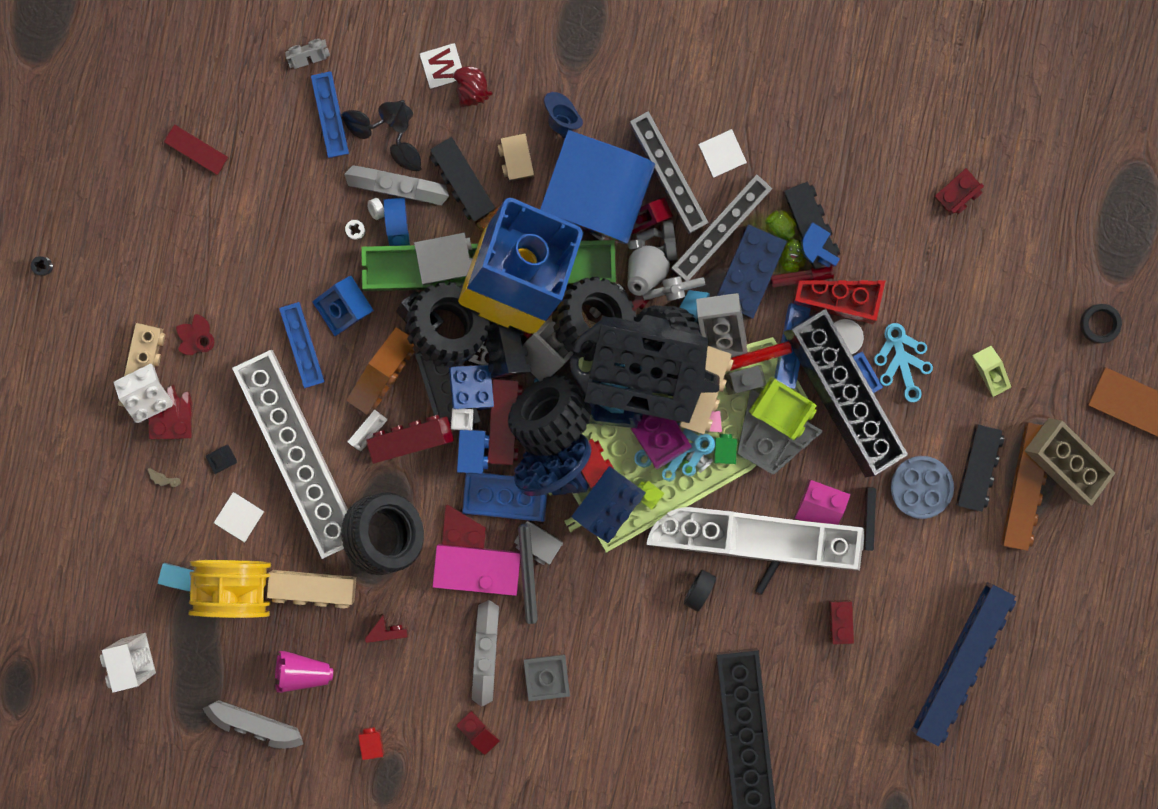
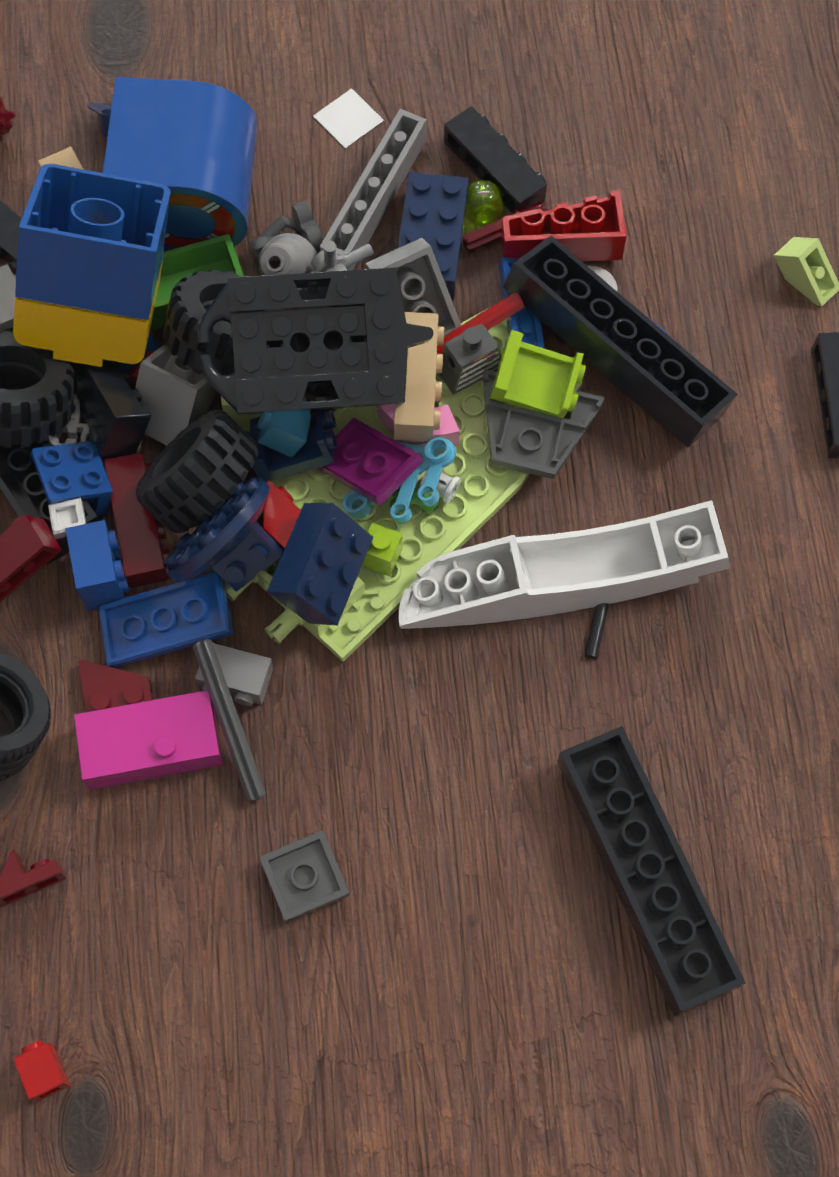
camera: 20 degrees left, 20 degrees down
(478, 733) = (217, 1001): dark red slope -> none
(485, 653) = (195, 868): light grey brick -> none
(652, 214) = (268, 202): dark red slope -> none
(668, 172) = (294, 155): light grey brick -> none
(700, 590) = (502, 669): black tyre -> none
(725, 449) = (473, 458): green brick -> none
(780, 225) = (454, 164): clear neon green head -> none
(812, 246) = (509, 172): blue brick -> none
(822, 504) = (640, 493): dark pink slope -> none
(841, 622) = (730, 657): dark red brick -> none
(869, 521) = (711, 490): black tile -> none
(902, 358) = (681, 291): medium azure plant -> none
(922, 487) = (772, 446): sand blue tile -> none
(959, 191) = (674, 80): dark red bracket -> none

